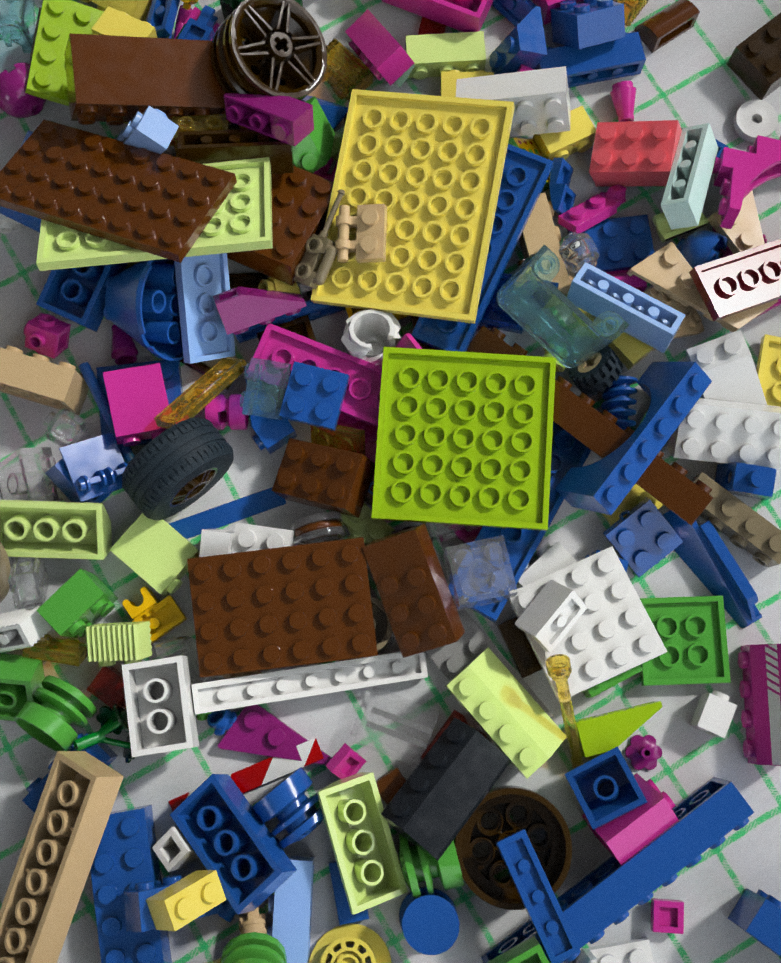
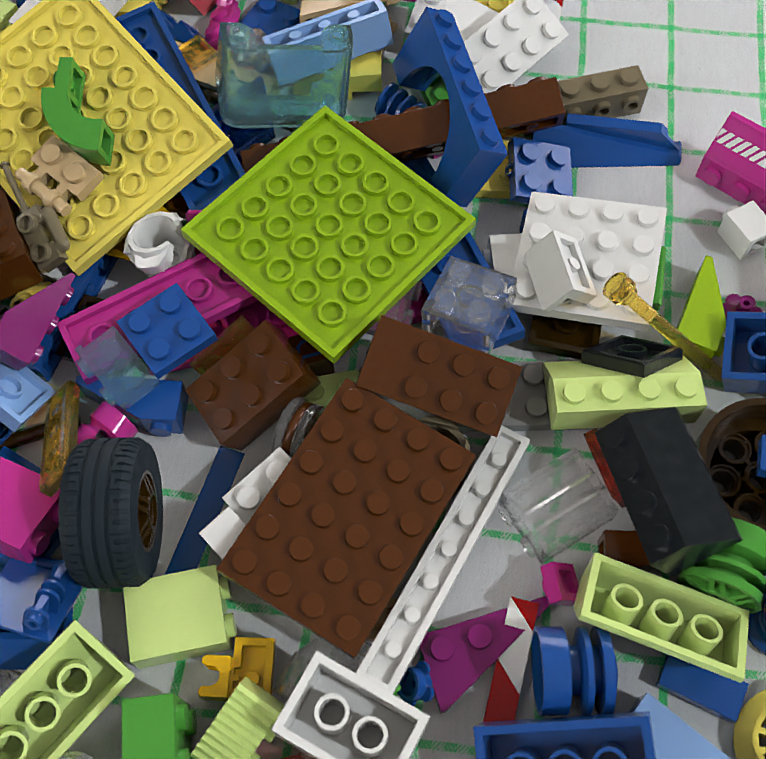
camera: 50 degrees left, 15 degrees down
(400, 203) = (62, 110): none -> bright green arch
(534, 704) = (632, 355): none -> black tile
(544, 221) = (198, 53): none -> clear yellow tile
(597, 372) = (364, 99): black wheel -> none
(694, 641) = (687, 203): bright green plate -> none
(747, 480) = (558, 59): blue torso -> none

